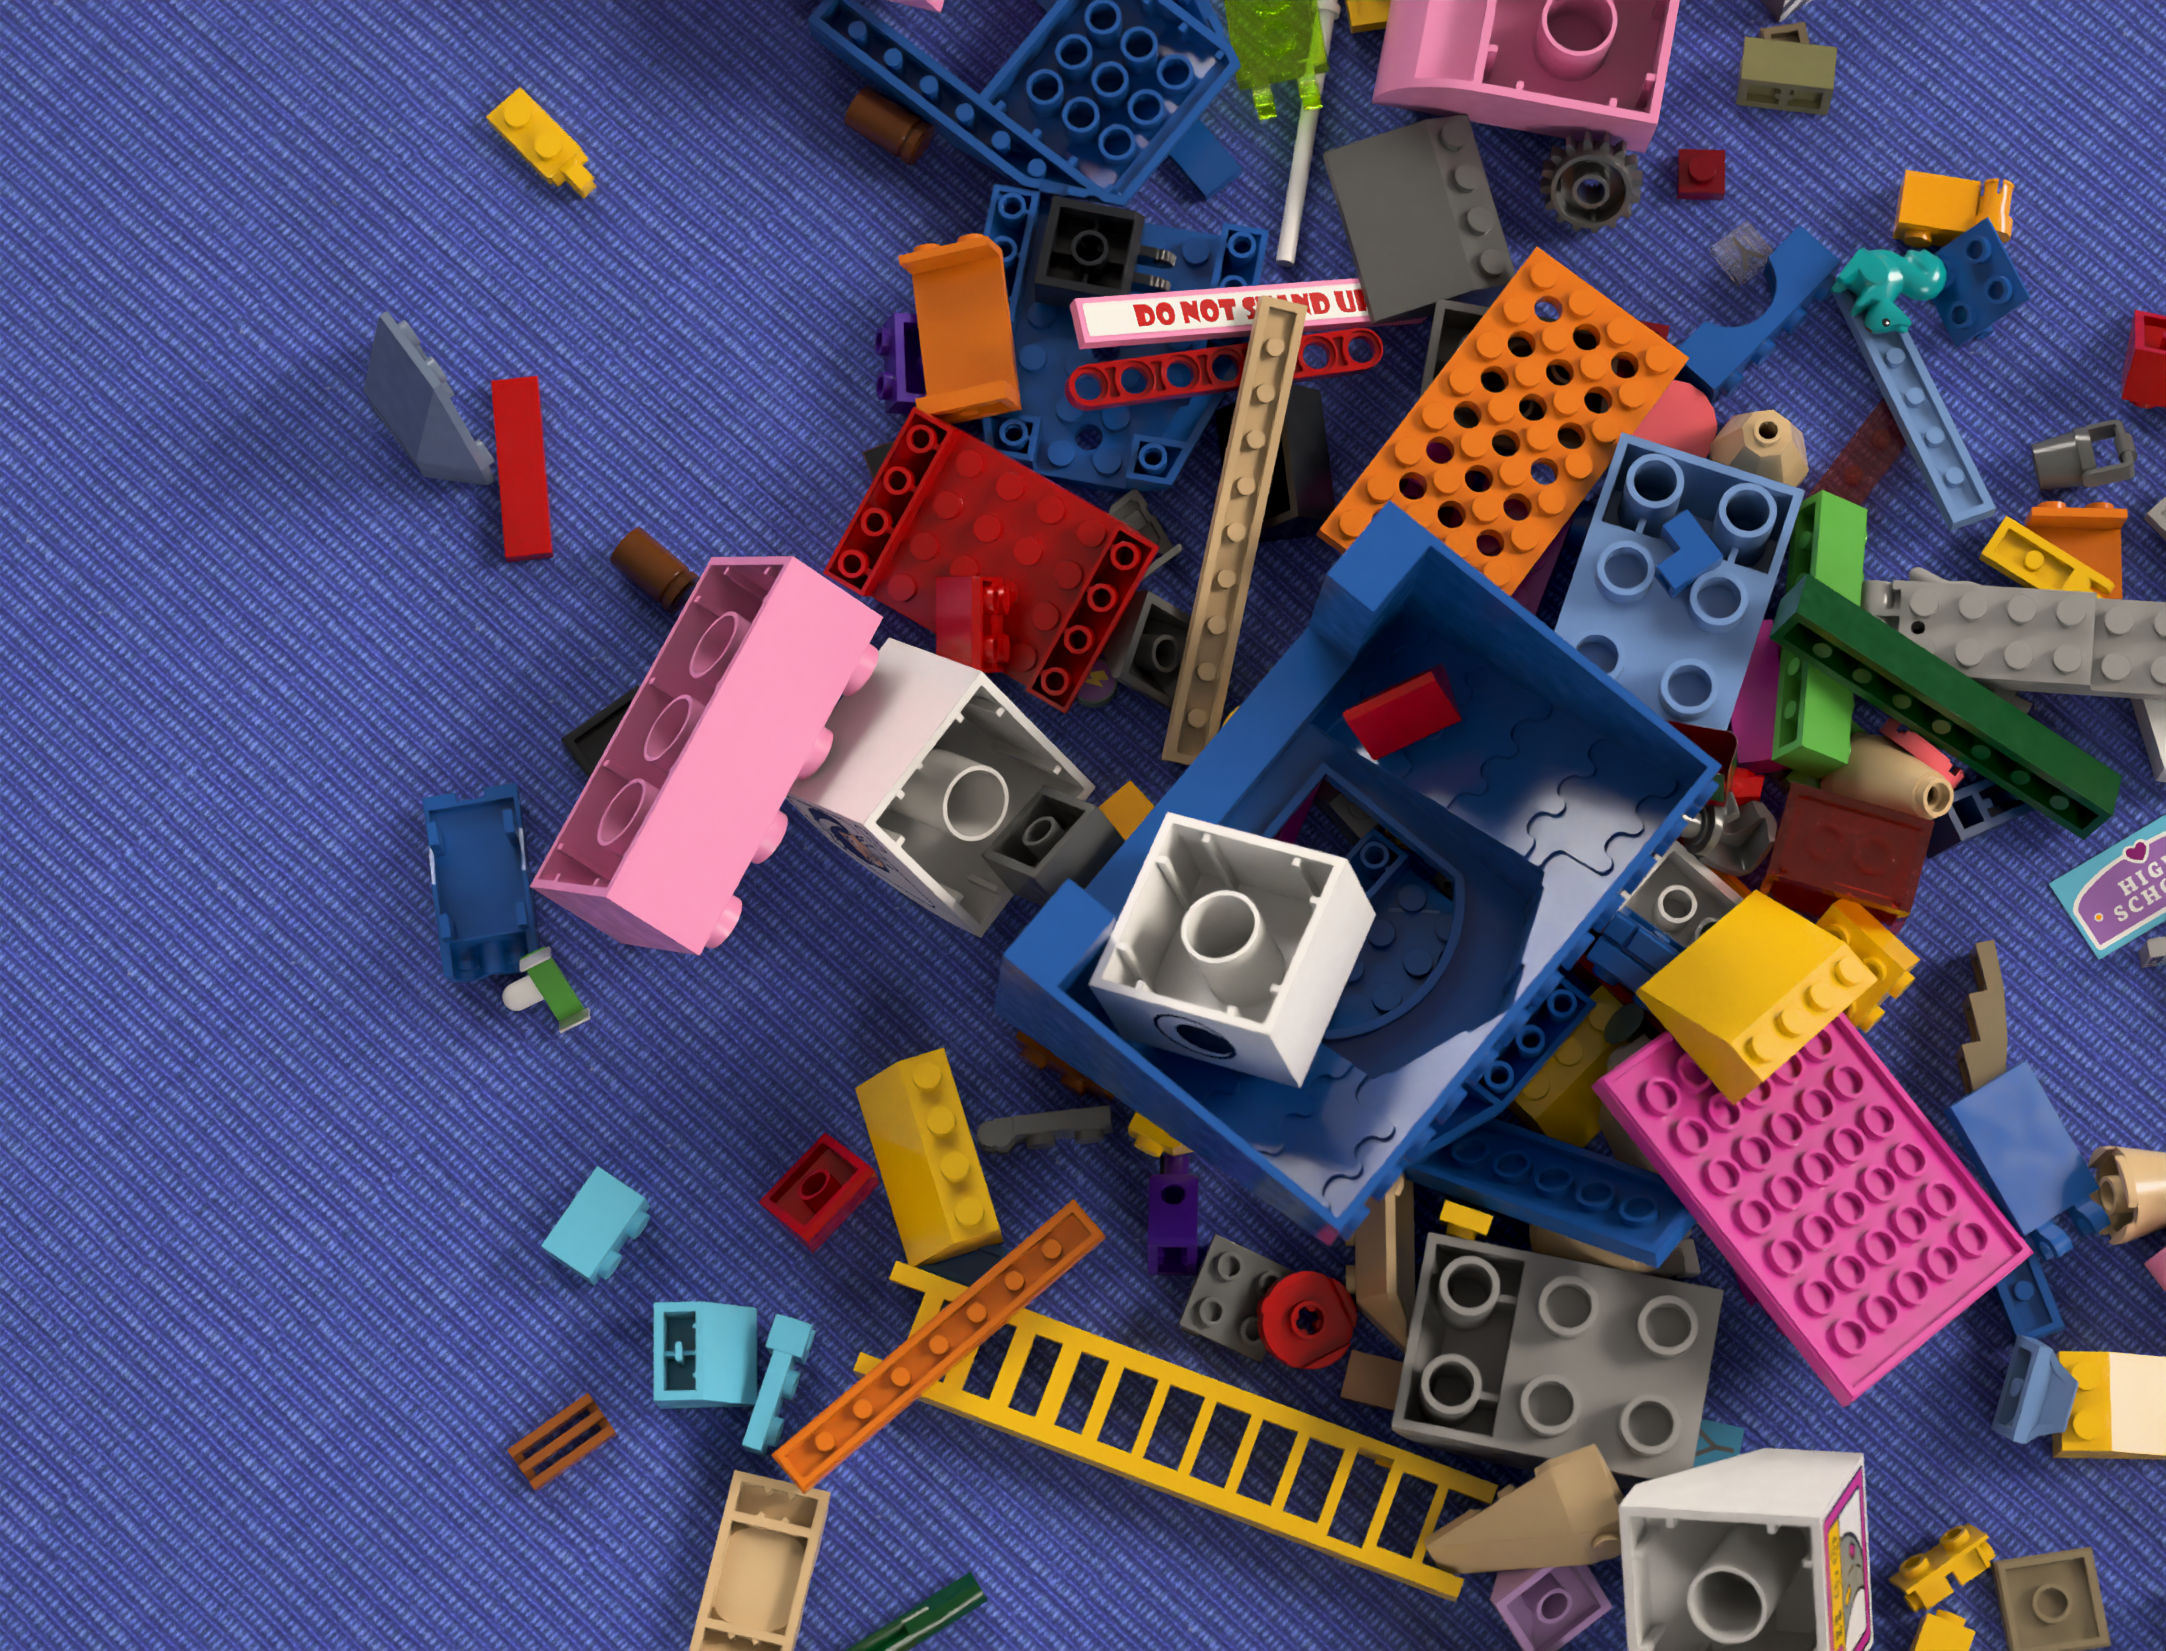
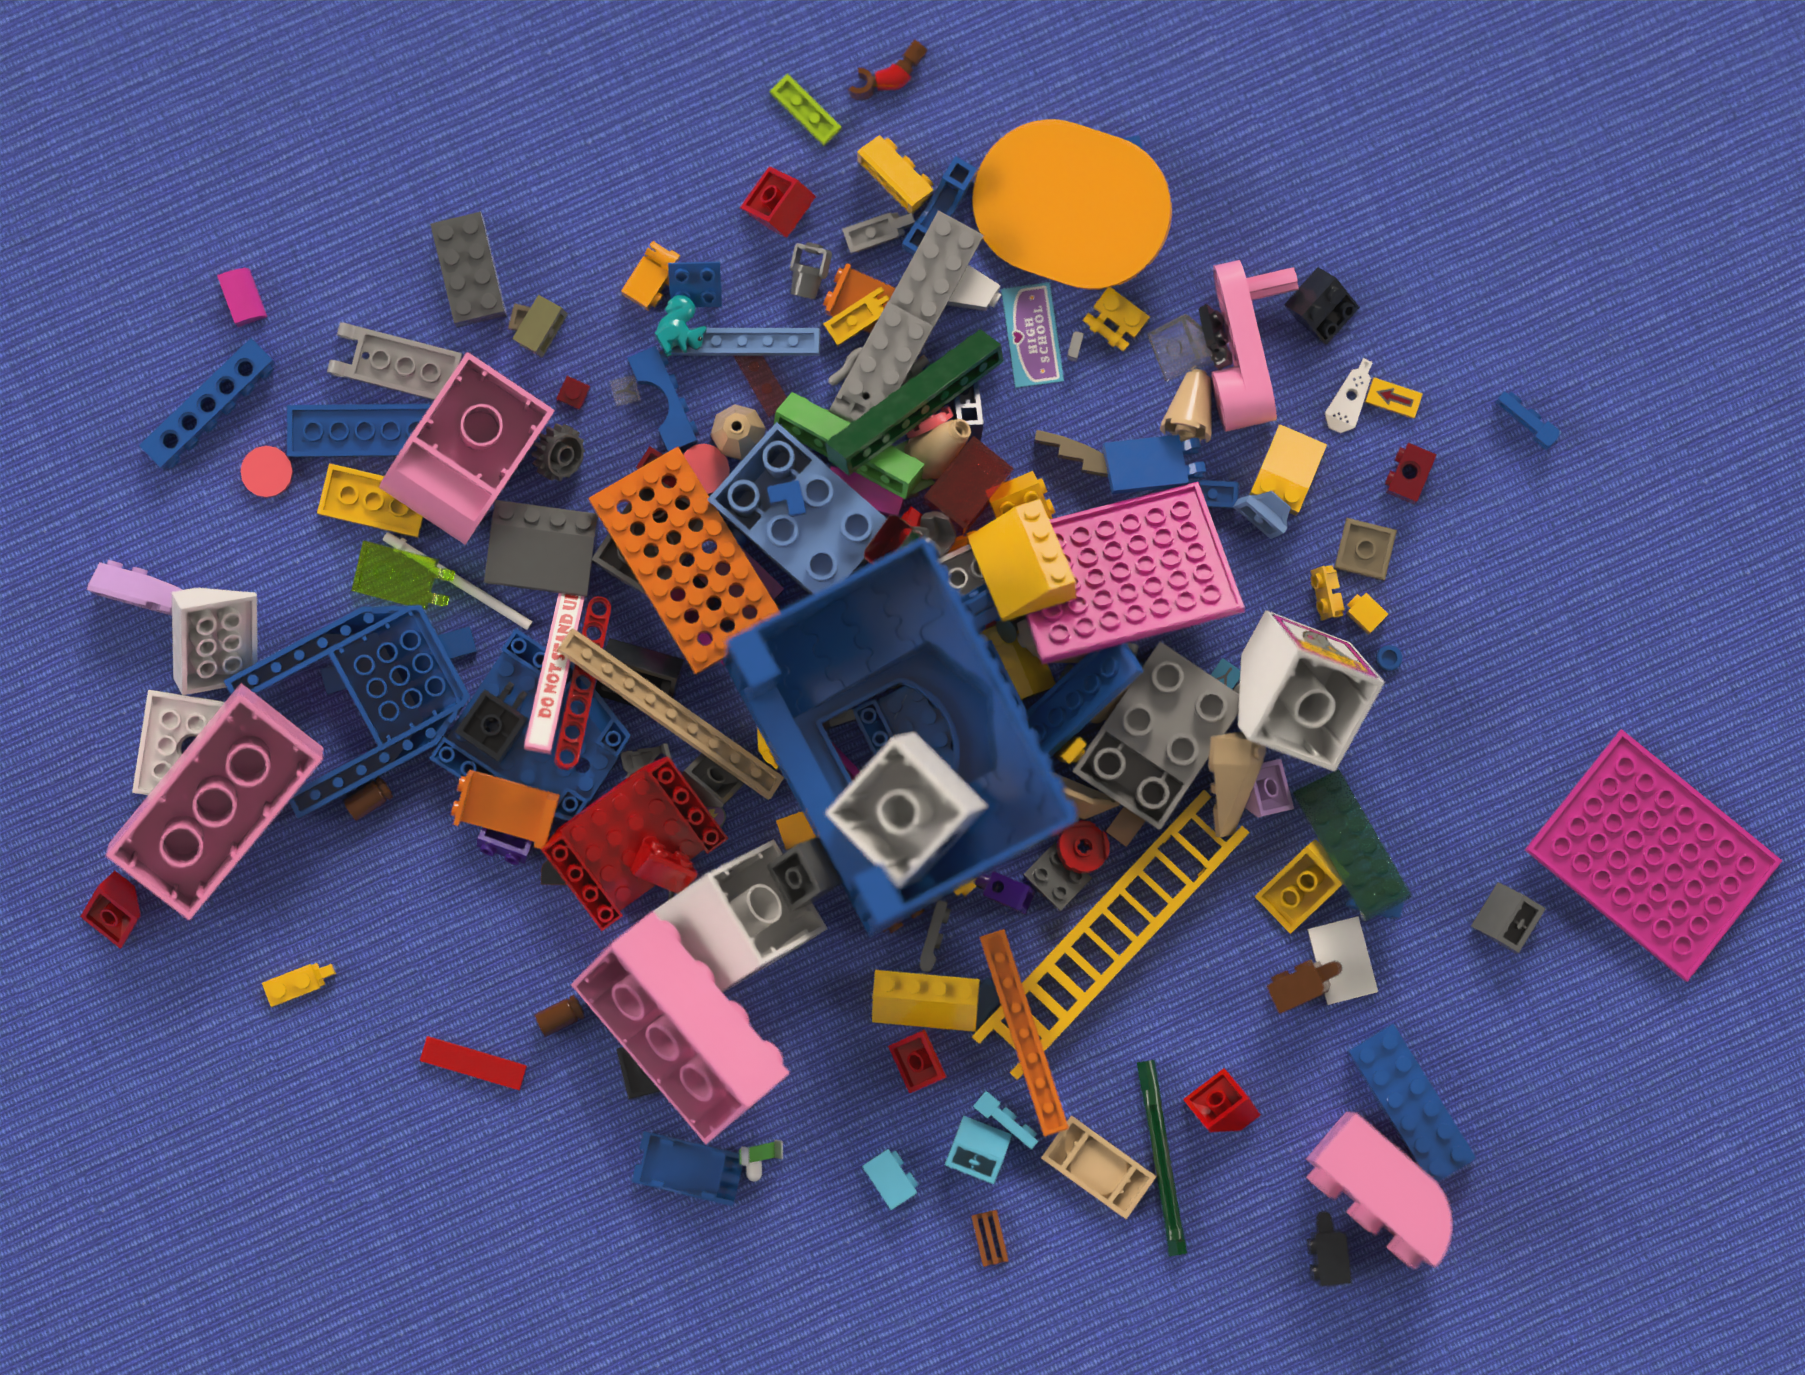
camera: 75 degrees left, 10 degrees up
(417, 408) = (423, 1106): sand blue wedge -> none
(1404, 712) = (811, 672): red slope -> none

